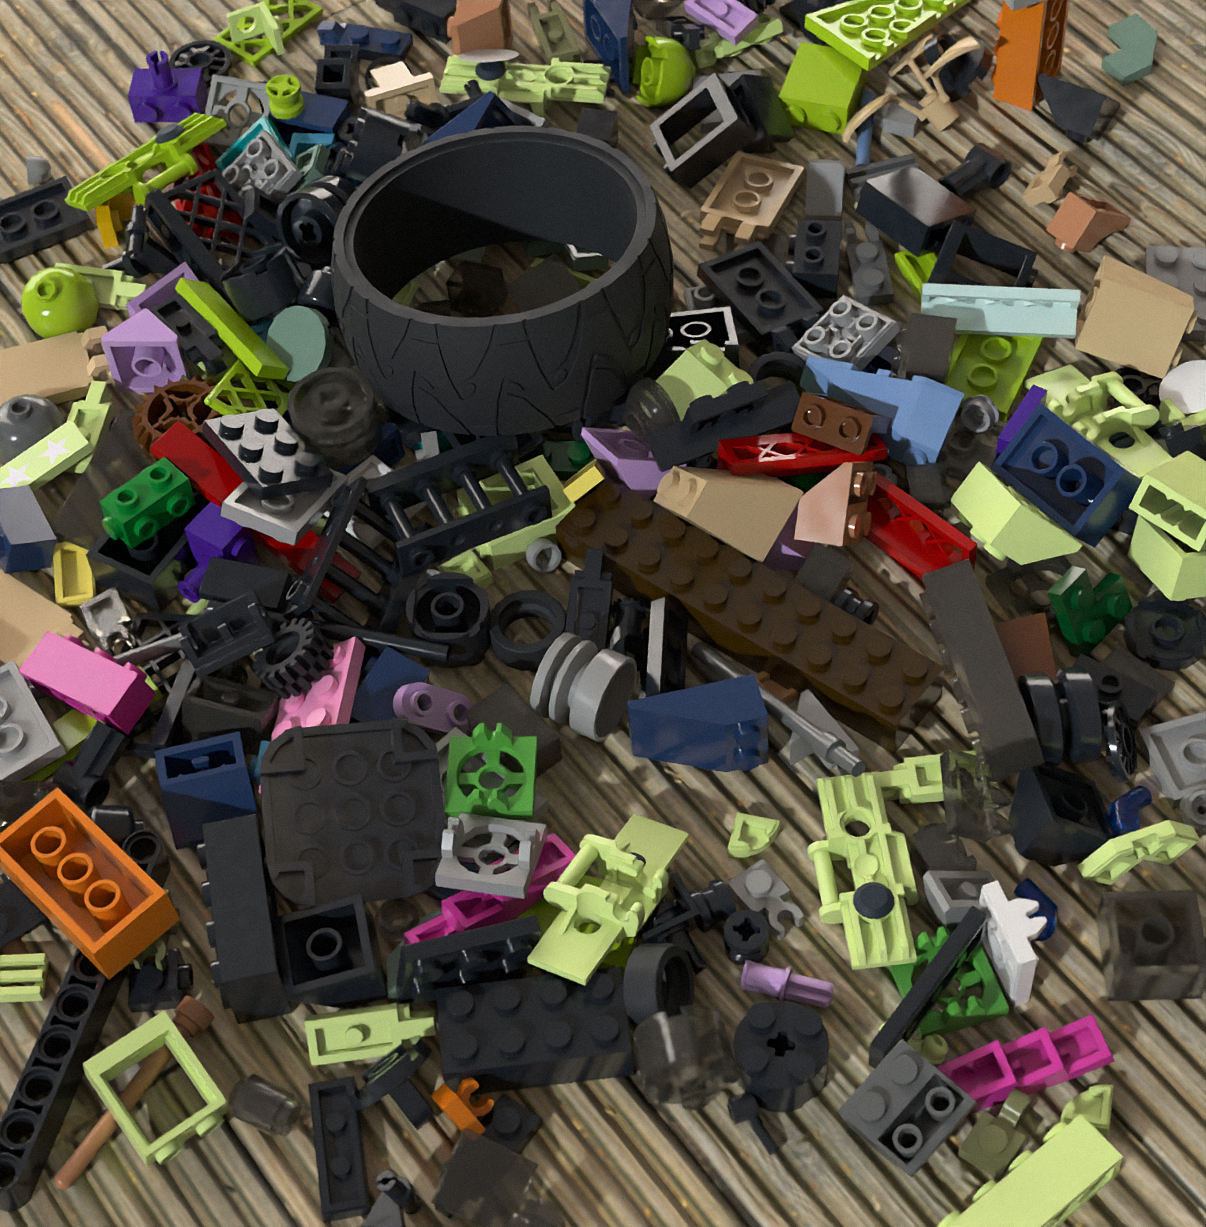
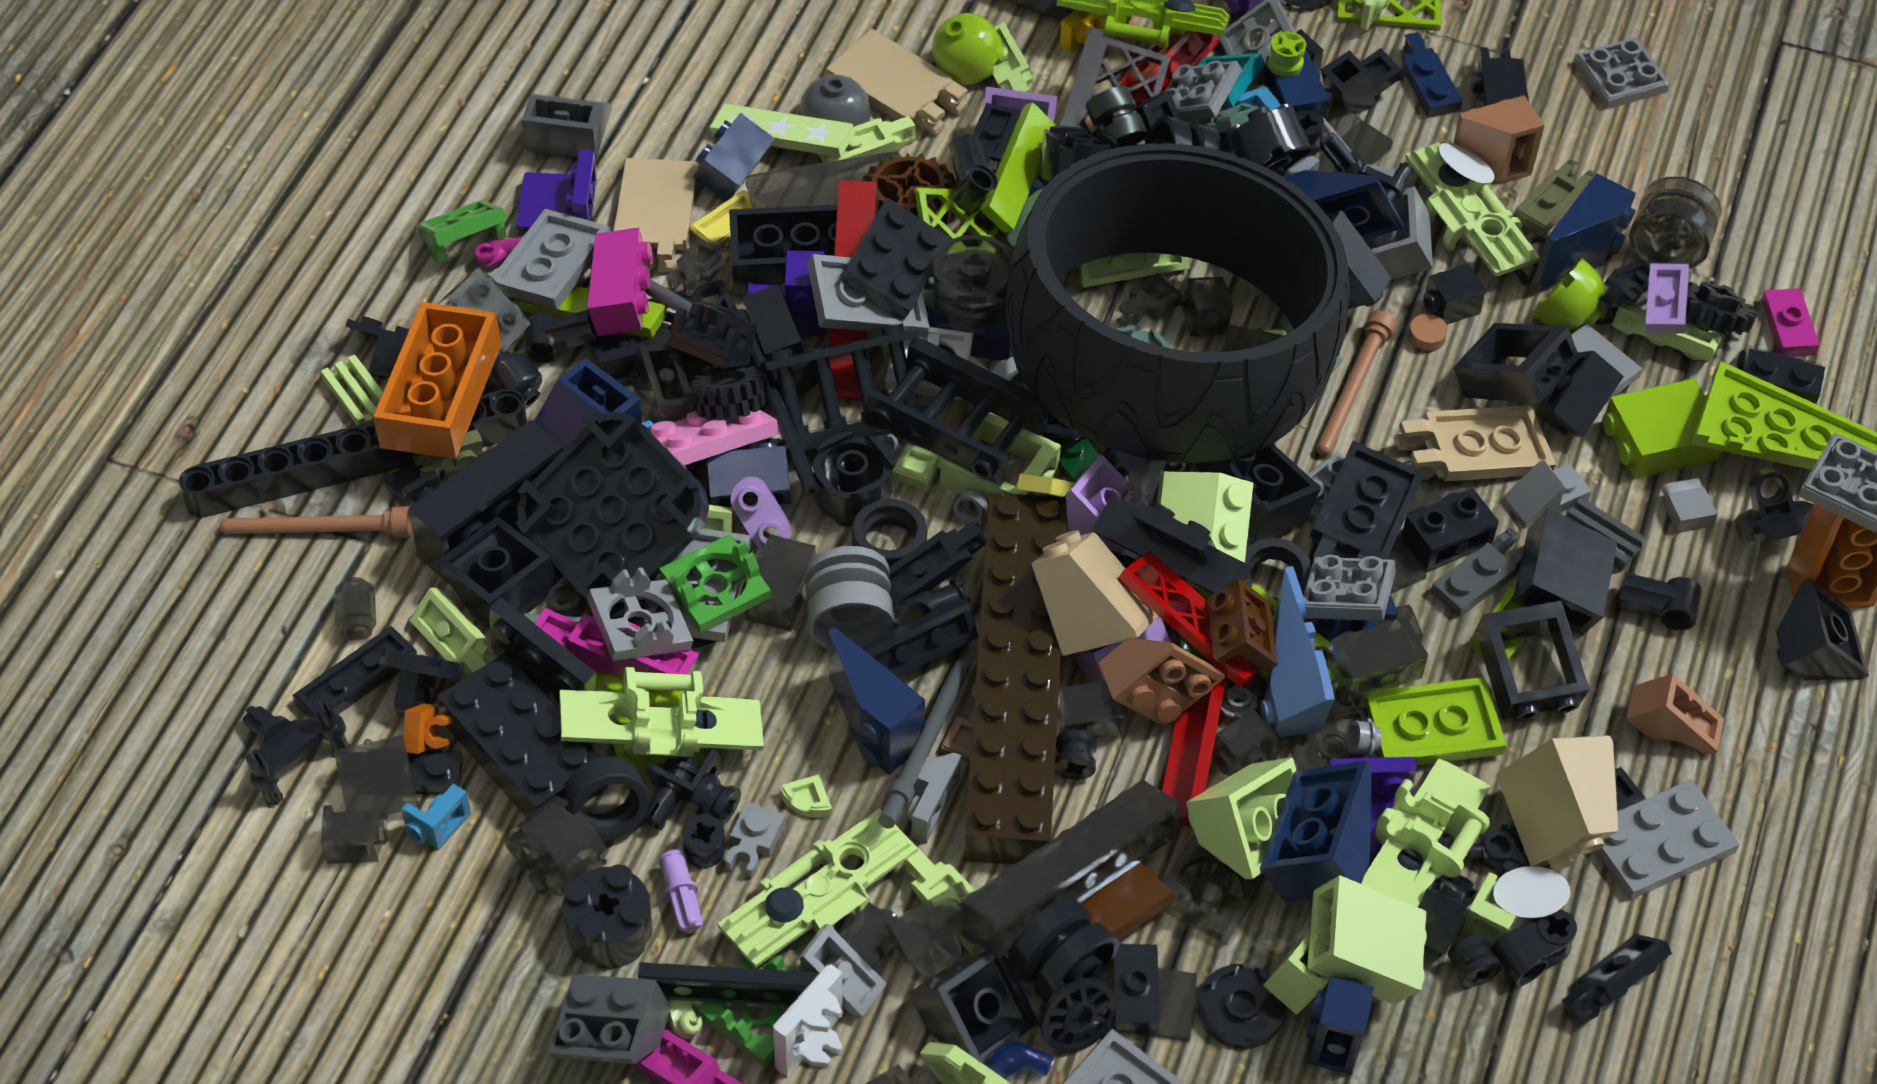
camera: 50 degrees right, 0 degrees up
(131, 1050) = (328, 493): yellowish green window -> none
(142, 252) = (1049, 68): black axle -> none
(143, 354) = (948, 117): lavender slope -> none
(147, 503) = (794, 214): green brick -> none
(231, 356) = (972, 174): none -> black piece
(235, 229) = (1114, 115): none -> pearl dark grey wheel
(397, 86) = (1377, 129): tan piece -> none
(570, 1159) = (442, 819): none -> dark azure bracket
(744, 1108) = (553, 922): black hand -> none
(865, 133) = (1646, 489): medium blue bar -> none
(935, 104) = (1716, 524): tan plant -> none
(1004, 309) = (1483, 689): light aqua fence -> none
(1047, 908) = (876, 1044): clear blue arm -> none
(1049, 184) = (1697, 663): tan plate -> none
(1088, 612) = (1200, 935): dark green plate -> none

